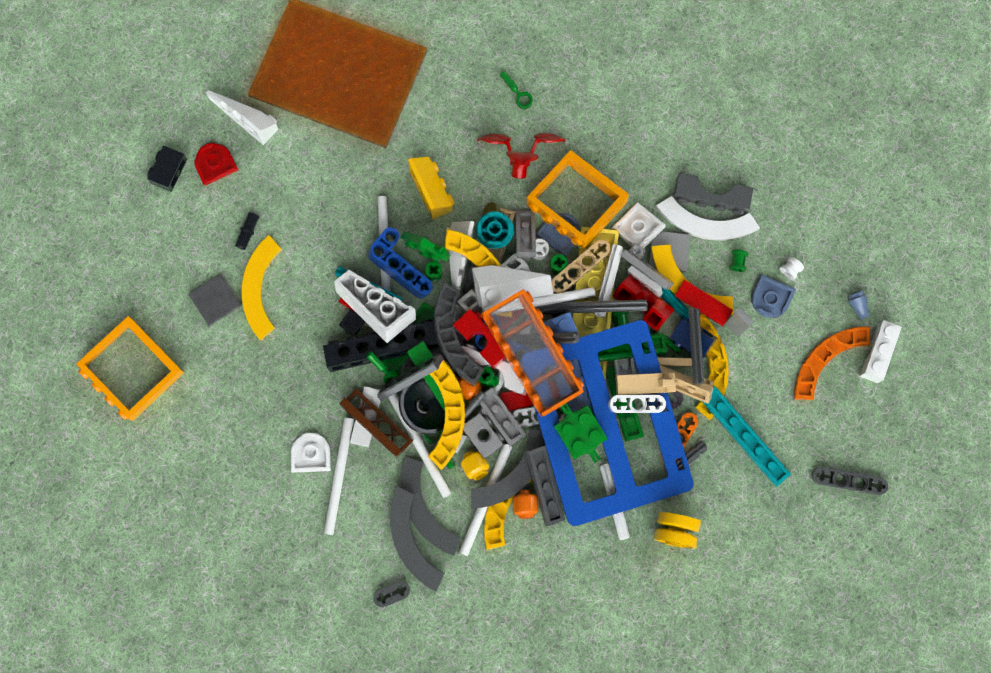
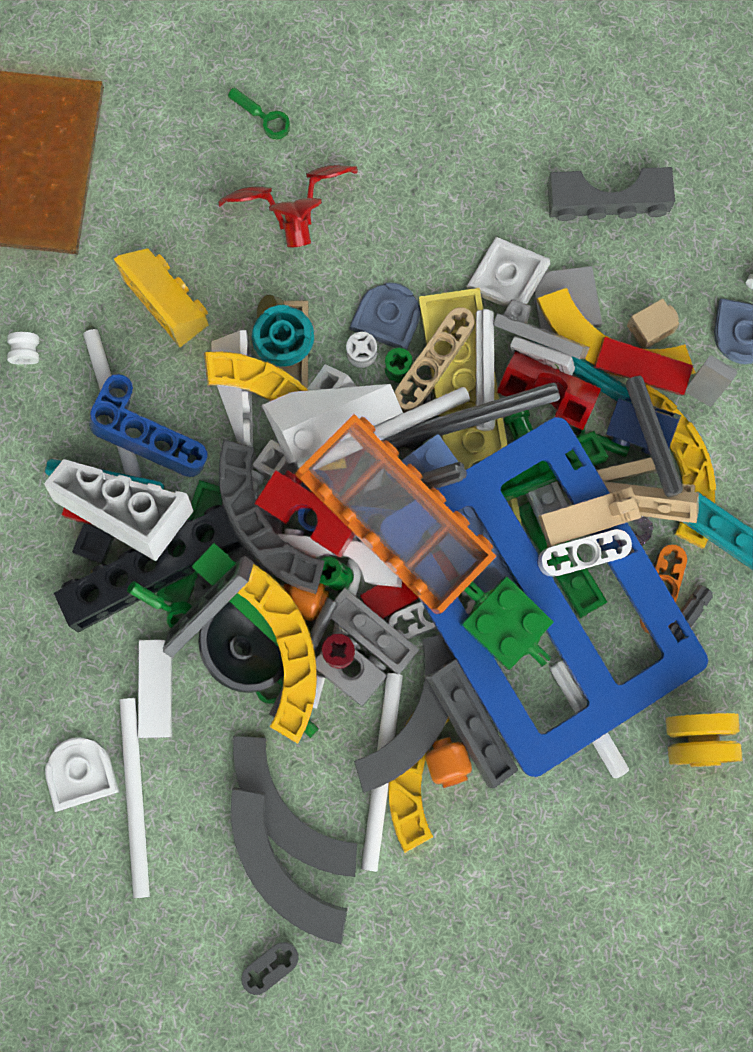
camera: 10 degrees left, 0 degrees up
(340, 196) = (23, 348): none -> white wheel
(371, 428) = (167, 706): reddish brown fence -> none
(423, 451) = (262, 722): white piece -> none
(426, 248) = (179, 391): green plate -> none
(434, 277) = (201, 418): green bush -> none
(469, 279) = (263, 425): dark grey axle -> none
(474, 465) = (350, 721): yellow head -> none
(479, 426) = (338, 659): none -> dark red wheel
(525, 235) = (334, 332): light grey hinge -> none
(594, 177) = (417, 214): light orange window -> none
(706, 228) = (612, 250): white tile -> none
(717, 279) = (653, 323): none -> tan brick
(738, 260) = (679, 286): green bush -> none

